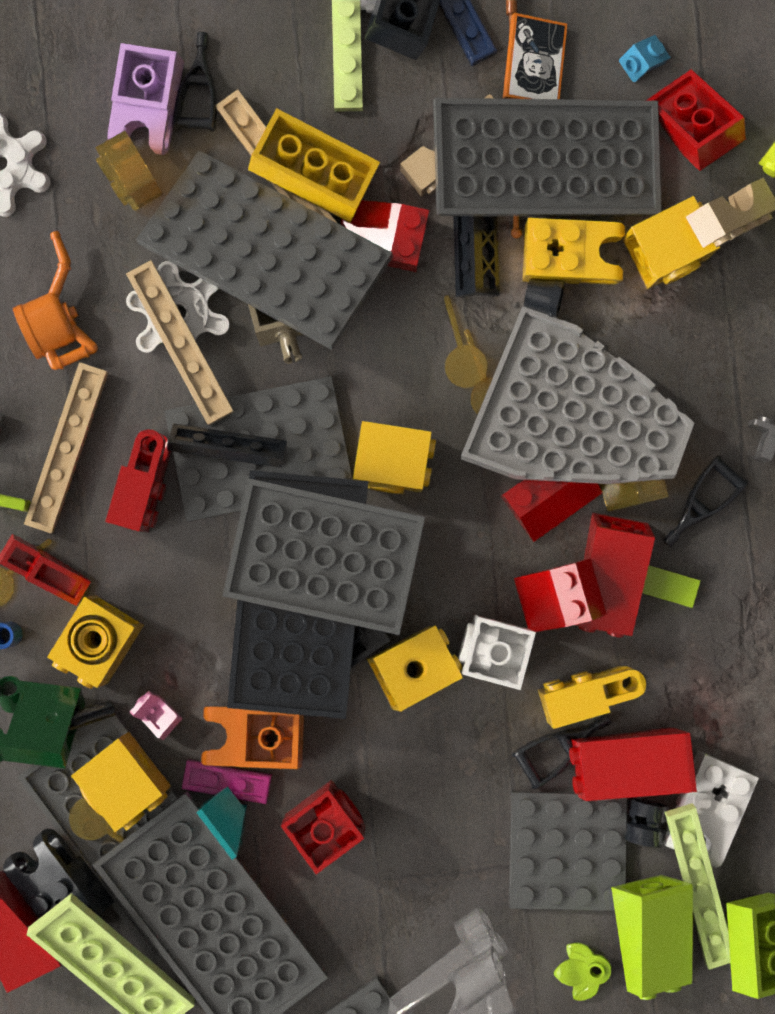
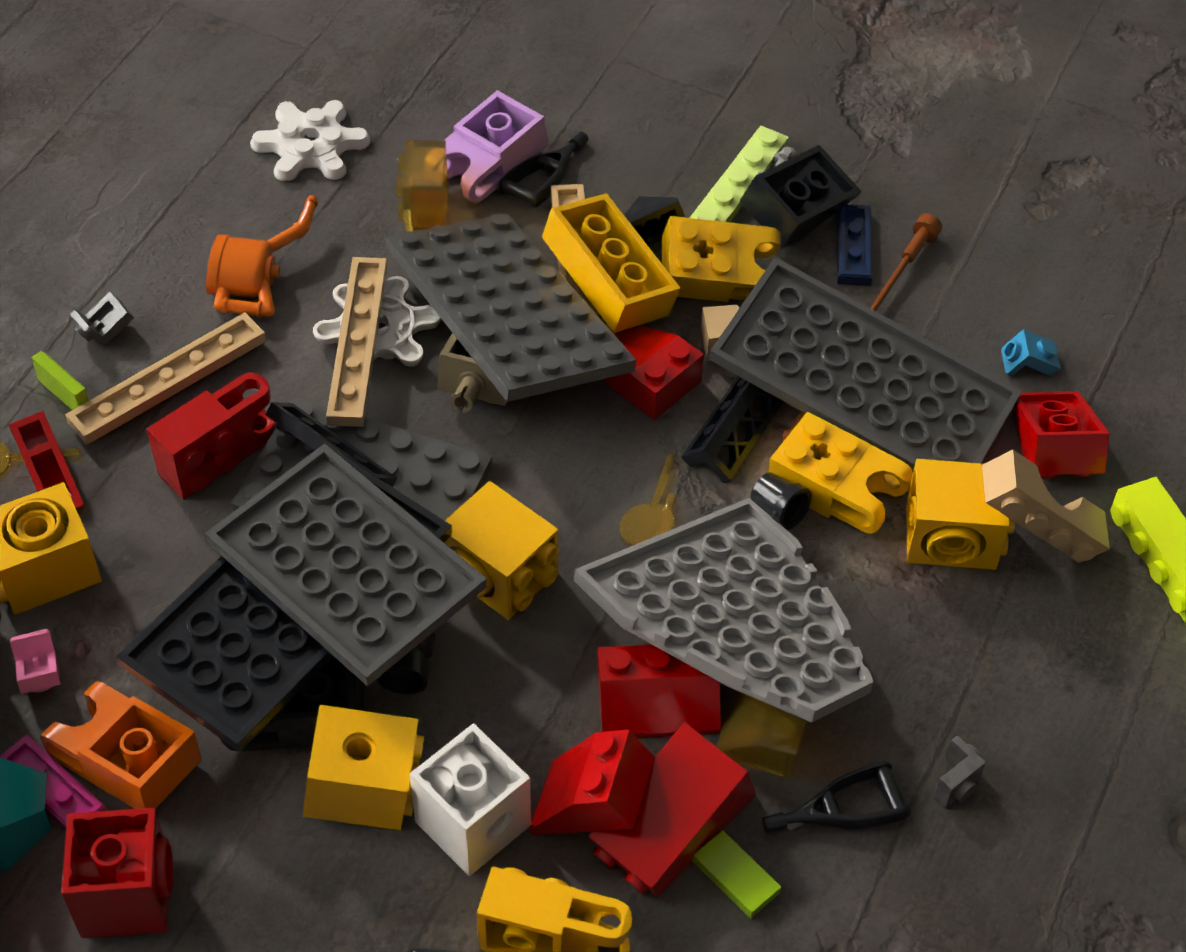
camera: 30 degrees right, 35 degrees down
(311, 97) = (651, 216): none -> slope
(389, 103) = (716, 257): none -> yellow brick
(534, 58) = (912, 294): tile -> none

